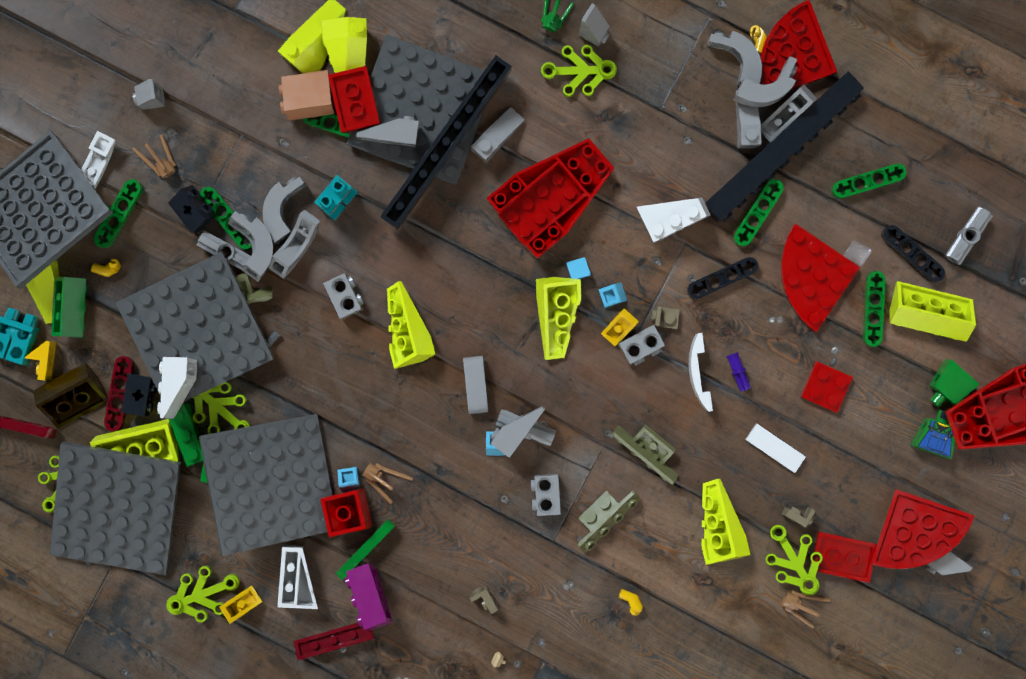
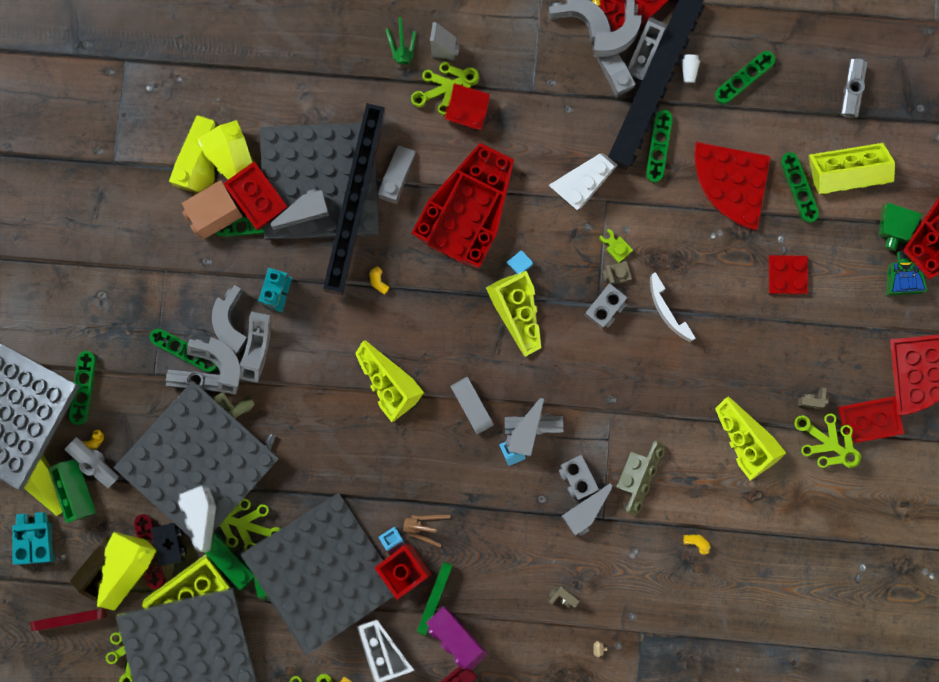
camera: 20 degrees left, 5 degrees down
(46, 355) = (68, 544): yellow slope -> none
(89, 397) = (124, 565): none -> neon yellow wedge
(98, 158) = (44, 343): white slope -> none
(98, 288) = (92, 462): none -> light grey piece
(149, 95) = (67, 269): light grey slope -> none
(164, 167) = (107, 328): medium nougat plant -> none
(192, 209) = (149, 354): black brick -> none
(339, 298) = (315, 379): light grey brick -> none
(435, 227) = (375, 280): none -> yellow arm
(537, 530) = (583, 514): none -> light grey slope
(591, 98) = (467, 107): none -> red slope
(613, 295) = (560, 273): medium azure slope -> none
(619, 327) = (579, 298): yellow slope -> none
(650, 449) = (654, 396): olive bracket -> none
(676, 293) = (617, 247): none -> lime plate
(721, 276) = (650, 215): black beam -> none
(738, 372) = (703, 294): dark purple axle -> none
(775, 448) = (766, 348): white tile -> none
(792, 602) = (842, 481): medium nougat plant -> none
(821, 149) = (690, 67): none -> white cone
(857, 253) = (763, 144): clear slope -> none
(911, 256) = (812, 122): black beam -> none

